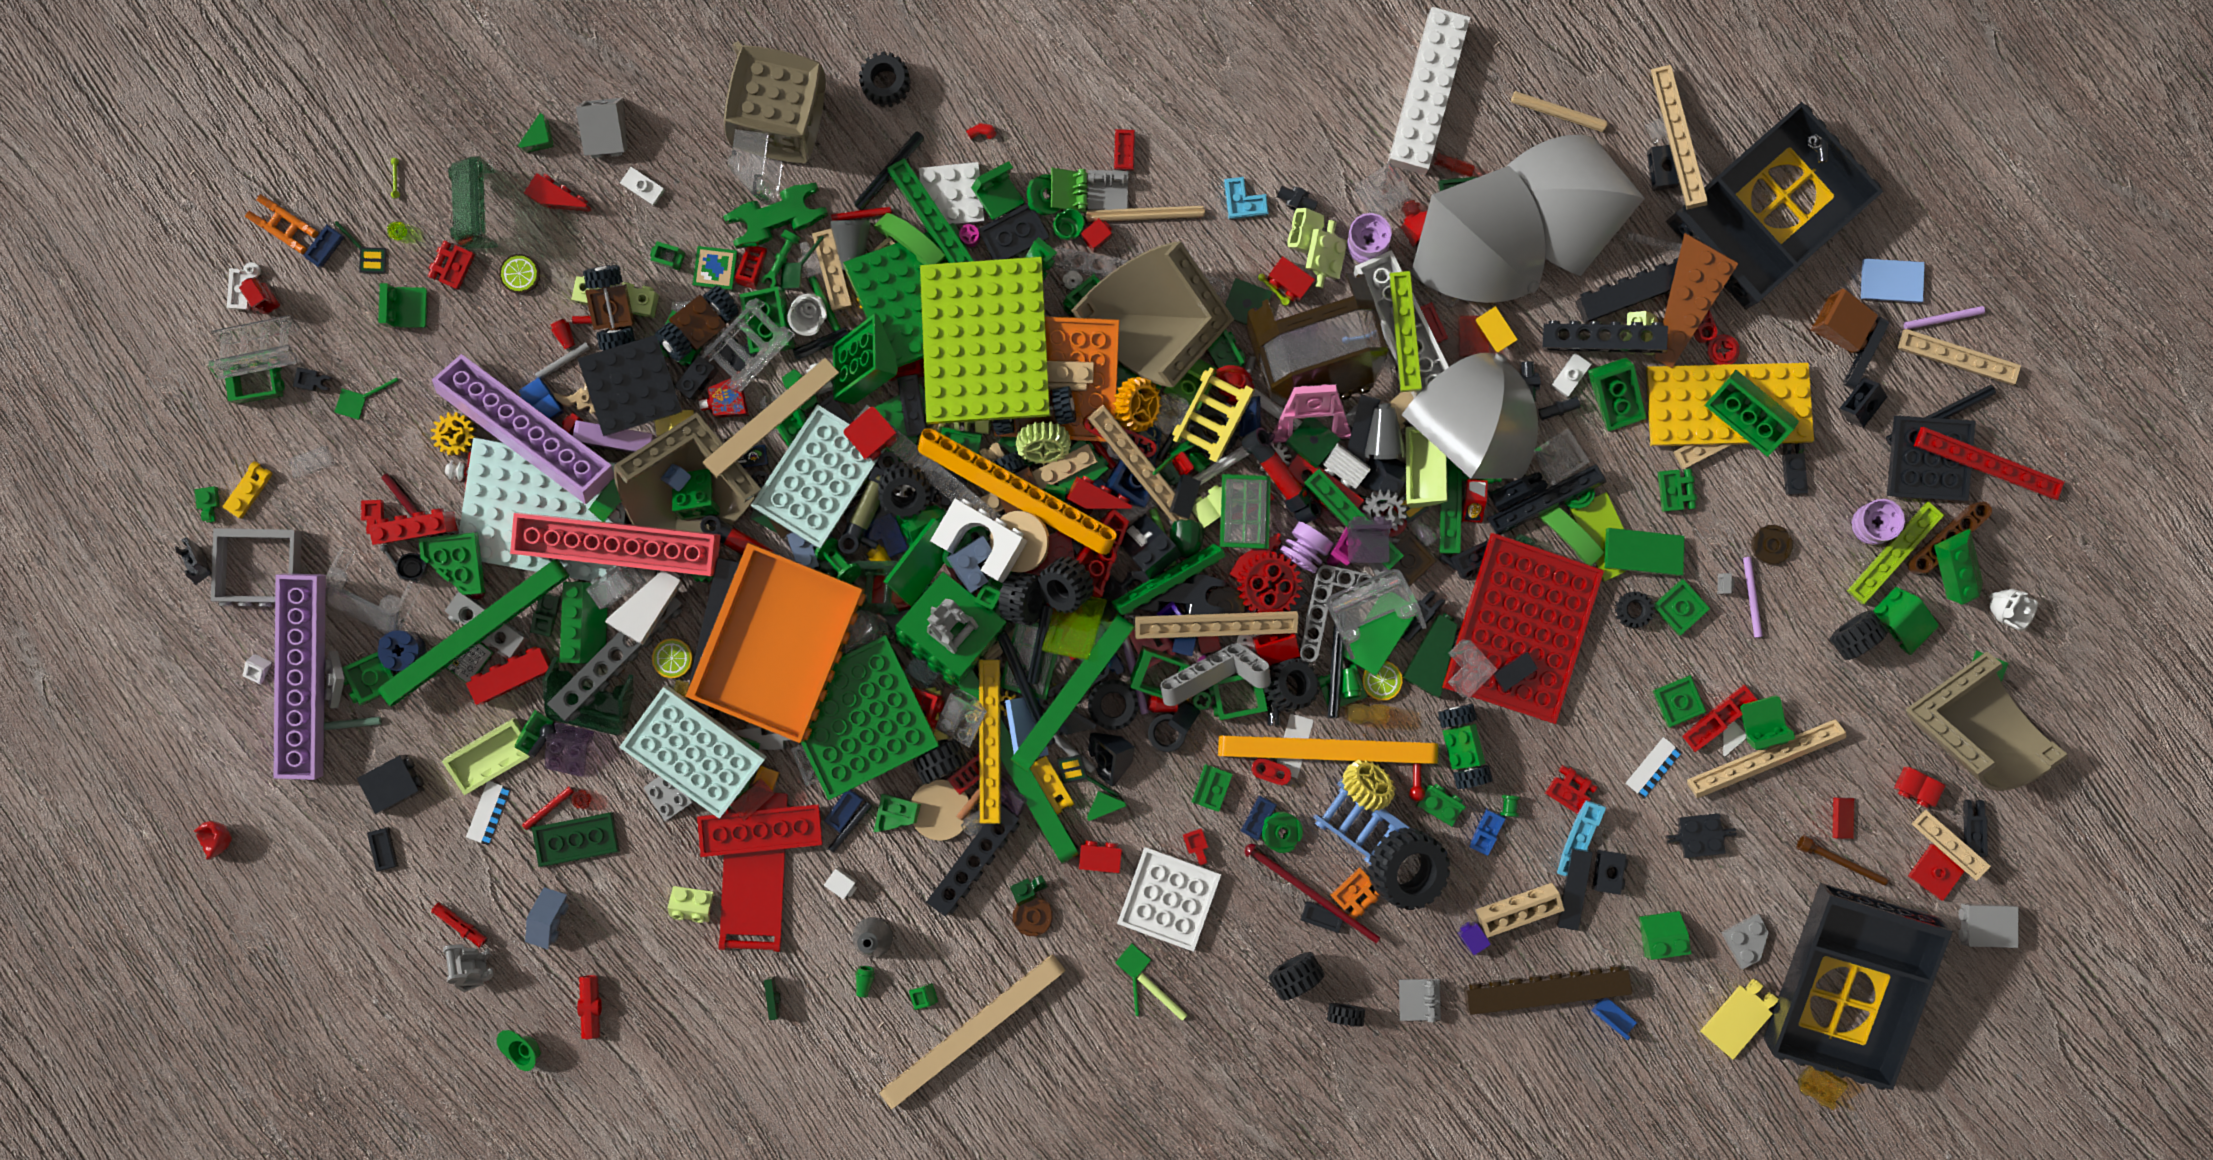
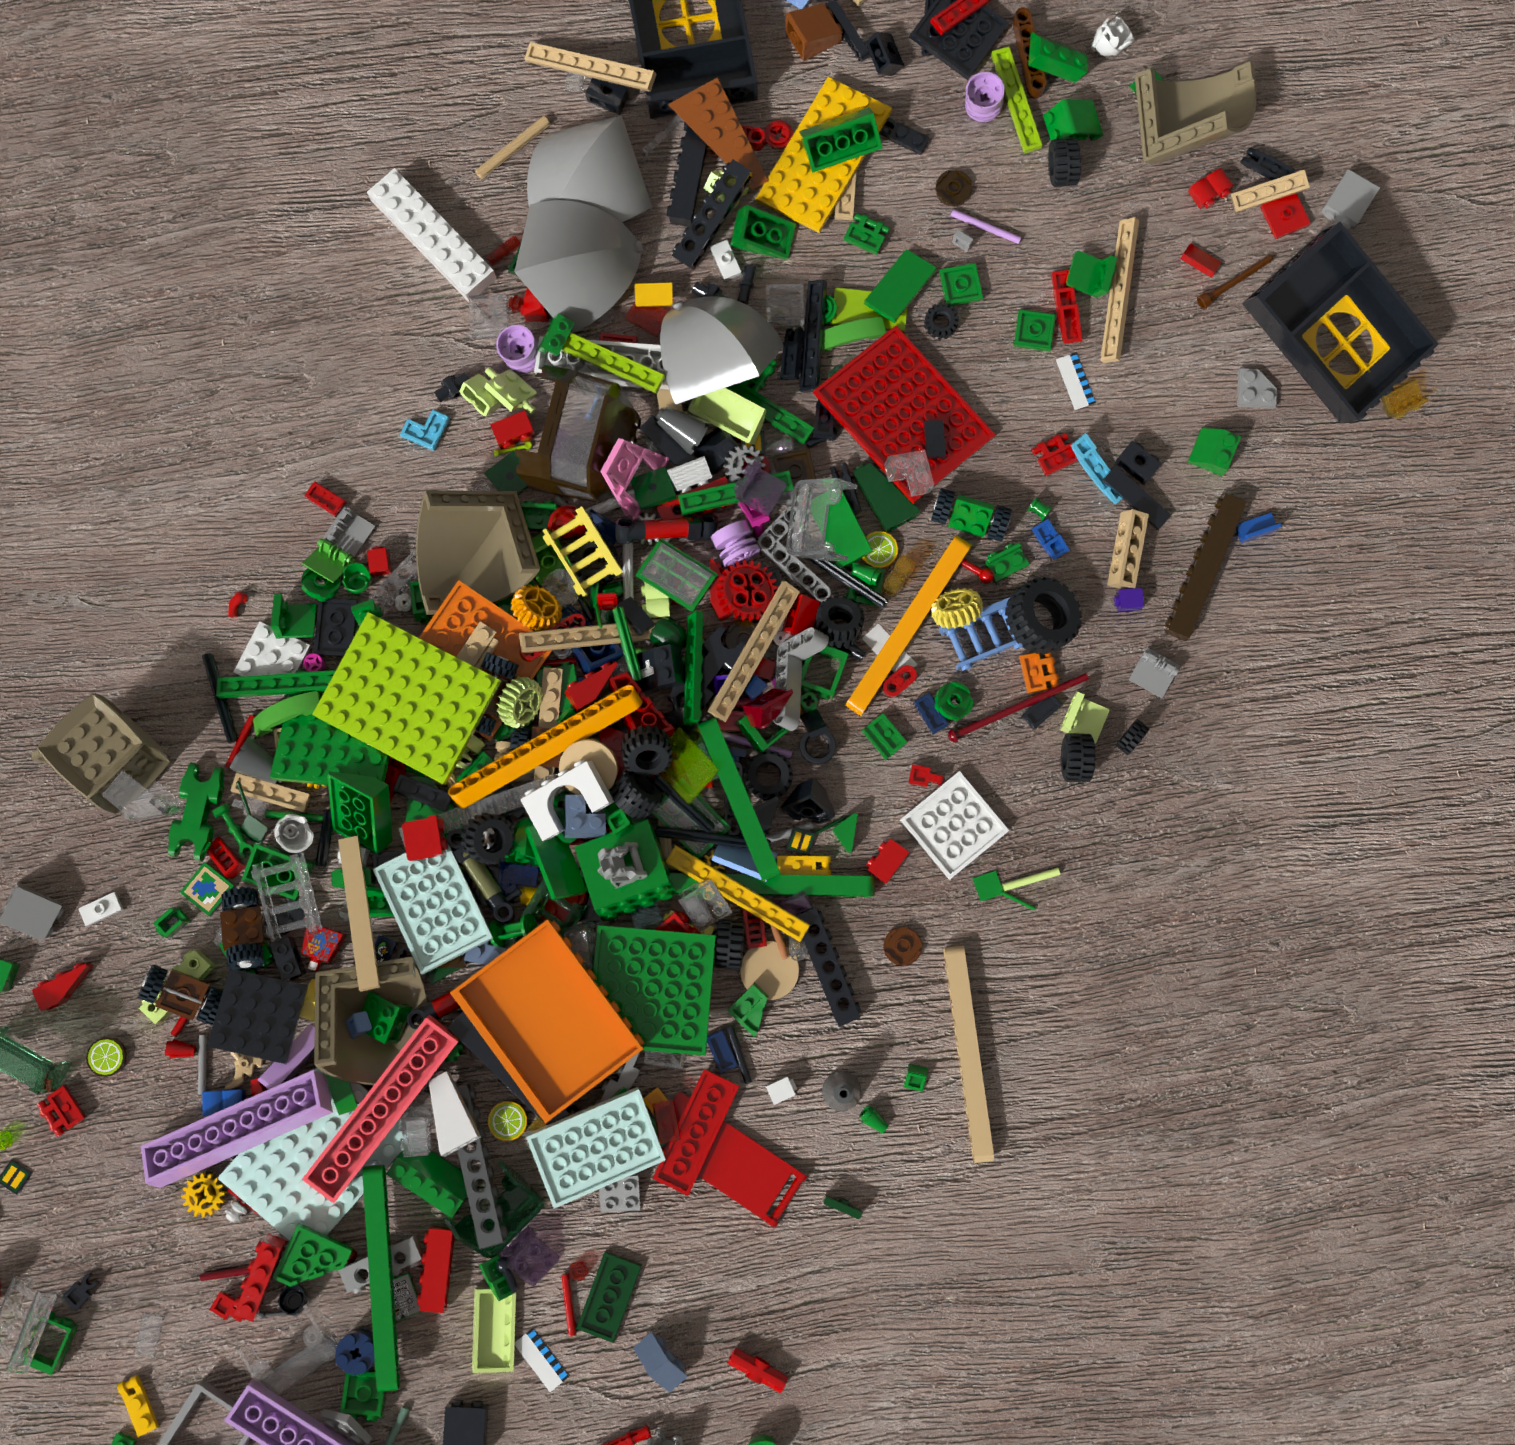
camera: 55 degrees left, 5 degrees down
(352, 403) = (123, 1268): green piece -> none
(402, 306) = (69, 1173): green bracket -> none
(545, 615) = (404, 1207): dark green slope -> none
(690, 904) = (722, 1229): yellowish green bracket -> none
(873, 68) = (132, 645): black tyre -> none
(1025, 890) = (878, 939): dark green plate -> none
(1145, 213) = (387, 512): tan axle -> none
(1155, 505) = (627, 643): none -> green axle
(1157, 705) = (791, 738): red cone -> none
(1171, 667) = (766, 707): none -> dark red slope
(1338, 960) = (1084, 717): none -> yellowish green bracket
(1400, 266) = (556, 335): none -> green bracket
(1475, 501) = (780, 391): slope -> none
(1701, 835) = (1151, 375): black plate -> none
(1732, 737) = (1087, 306): white sticker -> none
(1739, 1018) = (1314, 432): light yellow tile -> none

